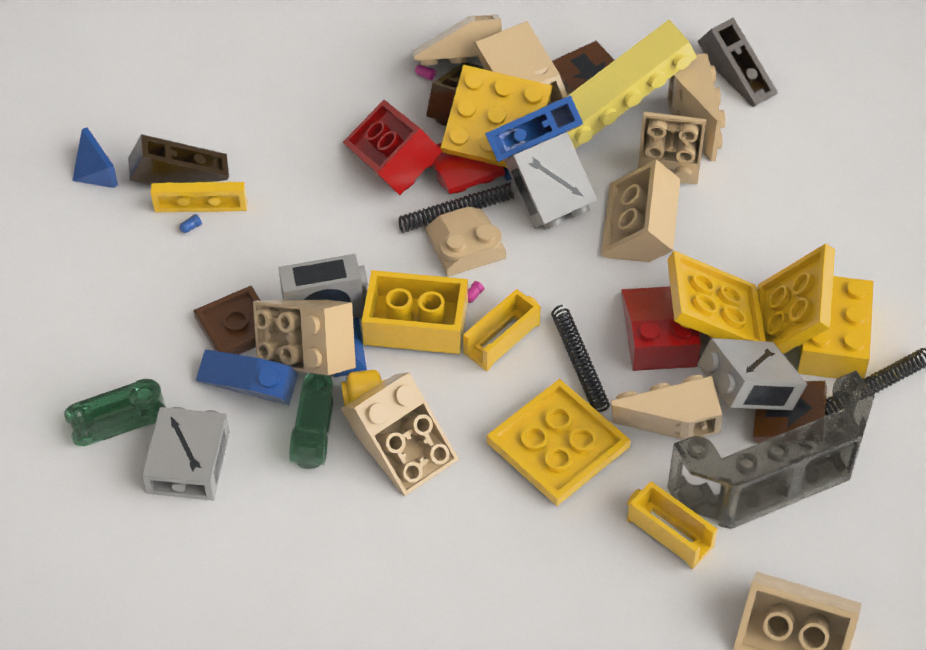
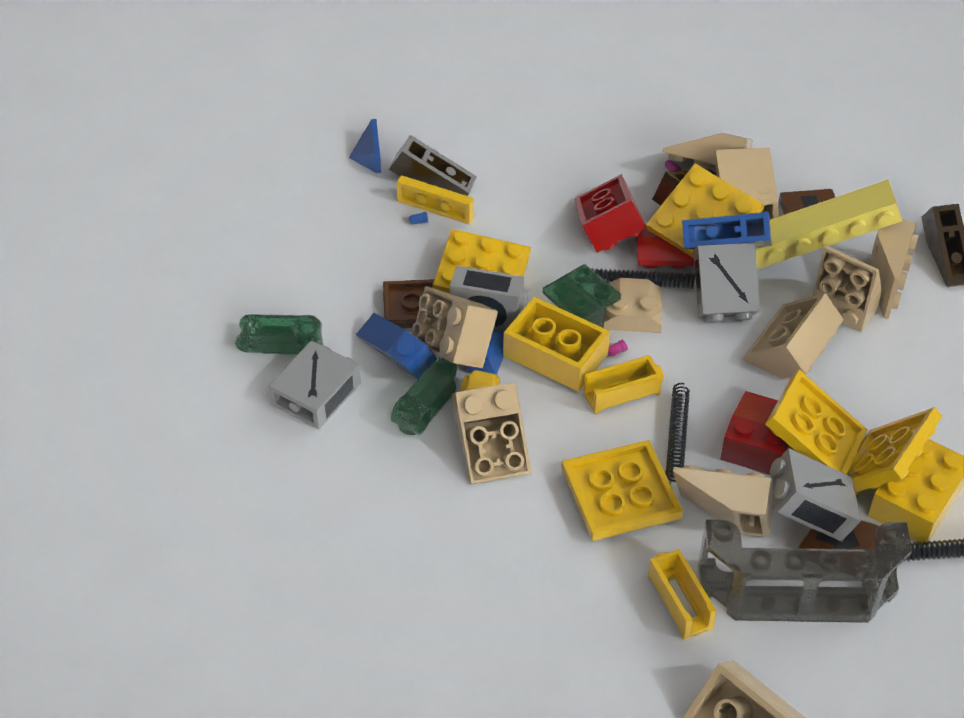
camera: 25 degrees right, 5 degrees down
(283, 243) = (479, 253): none -> yellow plate
(415, 248) = (583, 294): none -> clear green bracket

